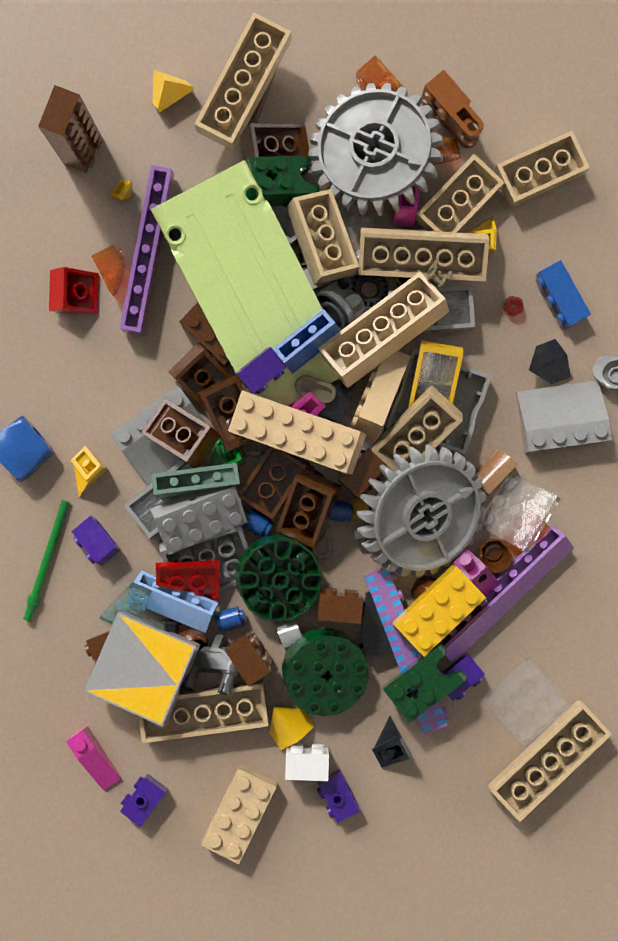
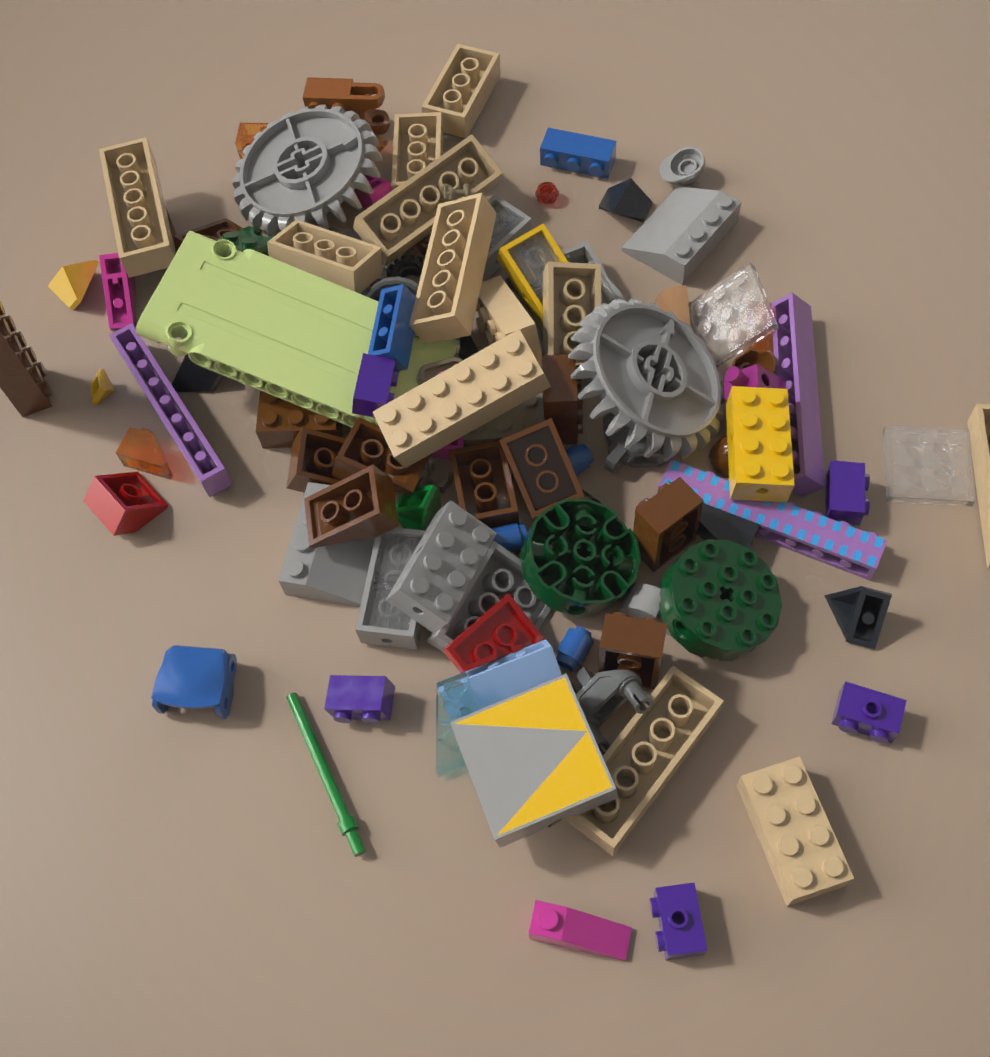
camera: 35 degrees left, 25 degrees down
(87, 469) = (287, 644): yellow slope -> none
(95, 645) = (463, 800): reddish brown brick -> none
(184, 130) = (118, 292): none -> dark pink slope
(194, 480) = (398, 540): sand green slope -> none
(289, 726) = (744, 696): yellow slope -> none
(307, 762) = (801, 703): white brick -> none
(359, 505) = (593, 440): yellow slope -> none
(429, 681) = (823, 508): dark green brick -> none

